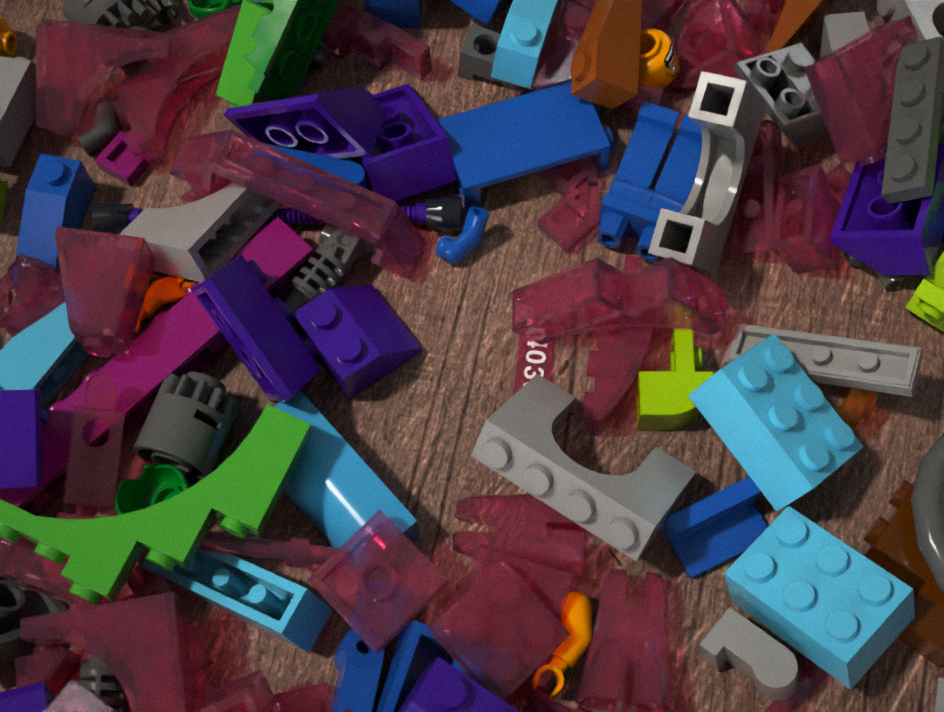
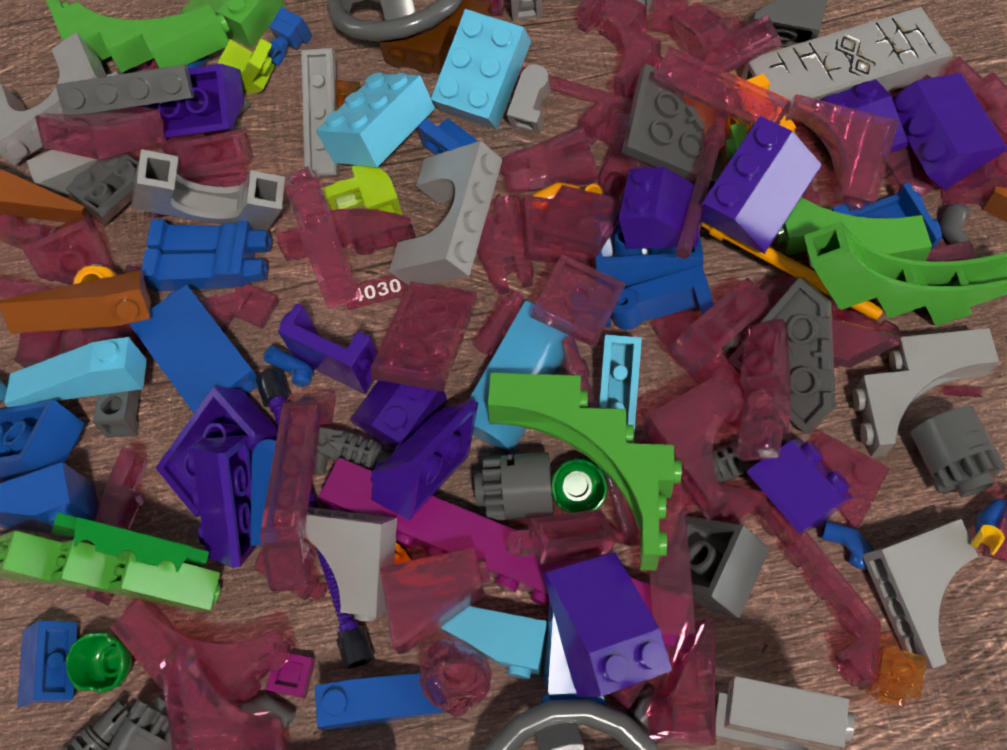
camera: 105 degrees left, 0 degrees up
(414, 381) = (424, 336): none -> clear pink plate
(415, 489) = (498, 324): none -> clear pink cylinder
(447, 265) = (344, 365): none -> dark purple panel

